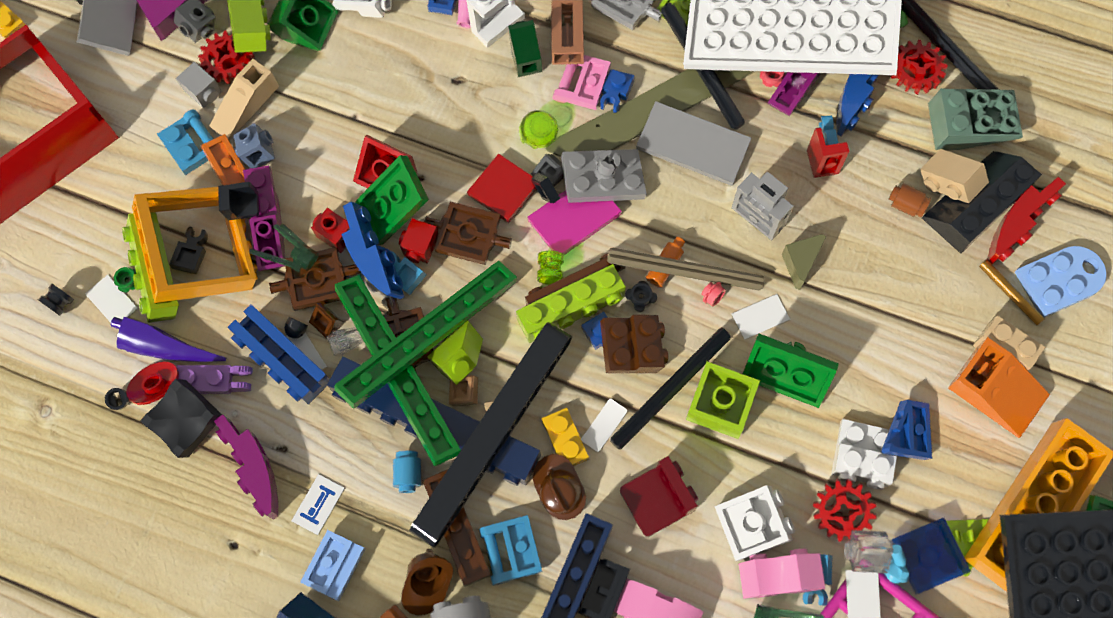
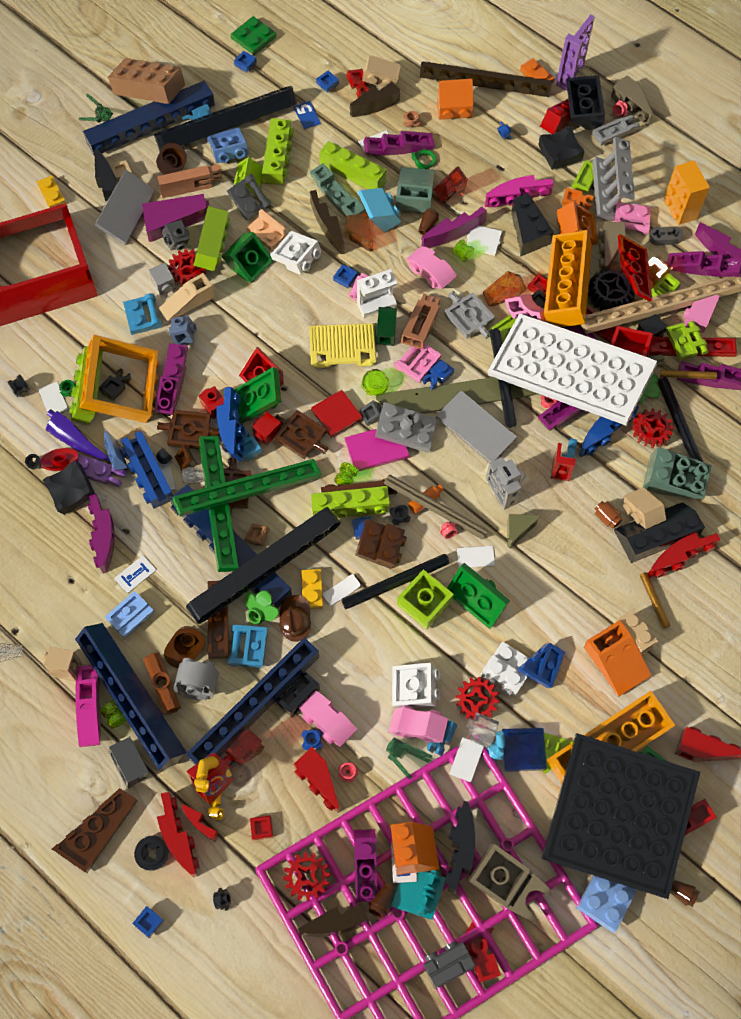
camera: 15 degrees right, 5 degrees down
(224, 160) = (159, 334): orange plate -> none
(225, 346) = (113, 449): none -> medium blue slope
(238, 200) = (158, 361): black panel -> none
(302, 254) = (186, 409): clear green plant -> none
(407, 471) = (200, 572): dark azure brick -> none
(458, 353) = (263, 508): lime slope -> none
(474, 92) = (342, 344): none -> light yellow window
(508, 491) = (260, 607): none -> bright green plate
(545, 188) = (363, 422): black tile -> none
(659, 497) = (358, 647): dark red bracket -> none
(1061, 280) = (693, 603): light blue plate -> none

